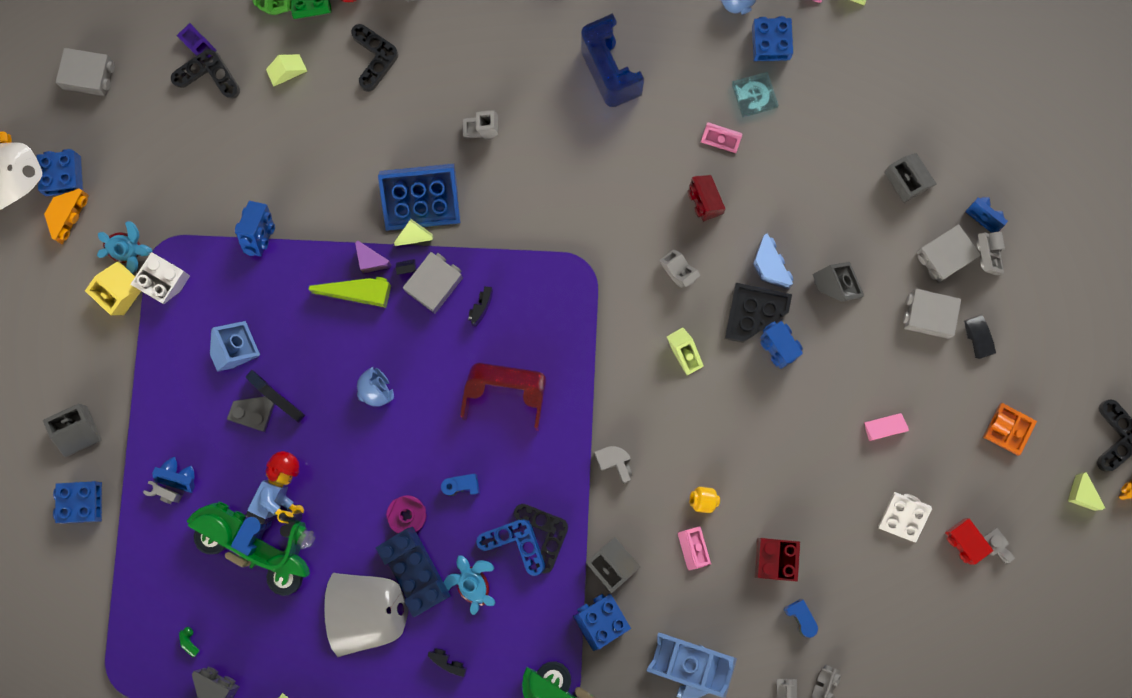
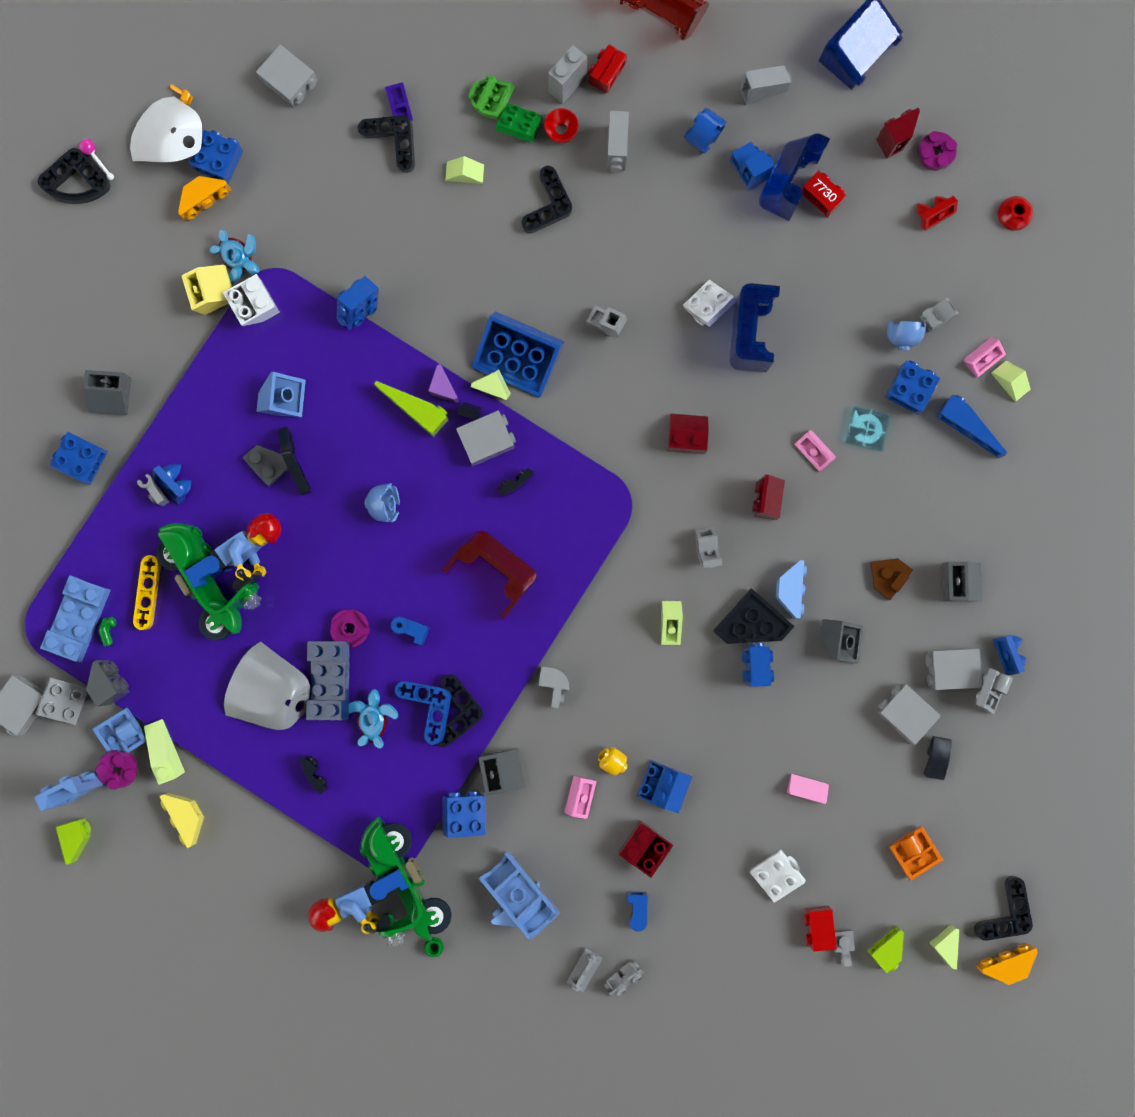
camera: 25 degrees right, 5 degrees up
(154, 647) = (76, 619): none -> medium blue piece
(210, 585) = (143, 592): none -> yellow beam
(560, 64) = (709, 303): none -> white plate
(606, 183) = (688, 434): none -> dark red slope
(762, 495) = (664, 786): none -> blue slope
(831, 42) = (965, 421): none -> blue slope
(847, 207) = (889, 576): none -> reddish brown plate
(1037, 526) = (888, 950): none -> lime slope

